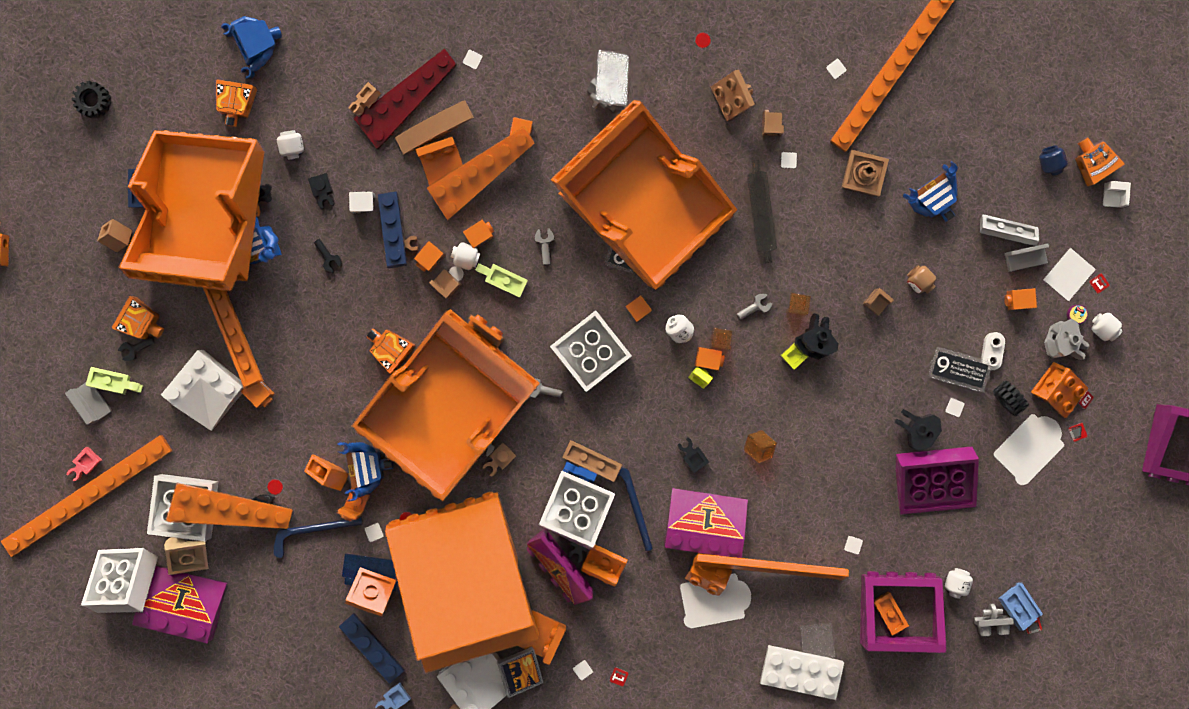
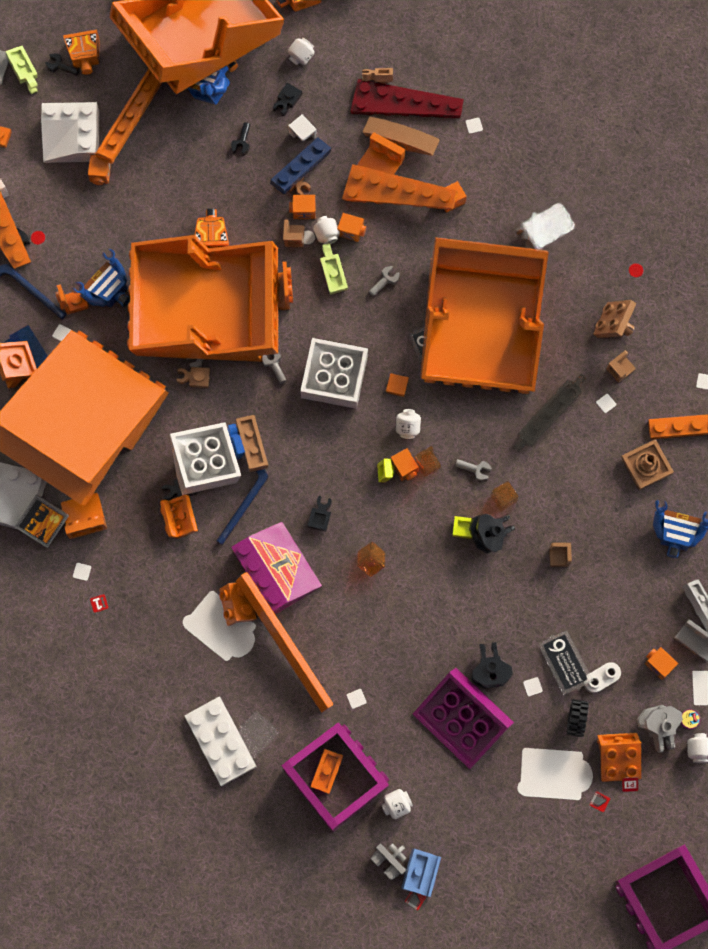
camera: 55 degrees right, 15 degrees down
(267, 193) = (248, 66): black plate -> none
(326, 473) = (79, 263): orange slope -> none
(560, 567) = (150, 480): magenta slope -> none
(921, 279) = (606, 574): medium nougat head -> none

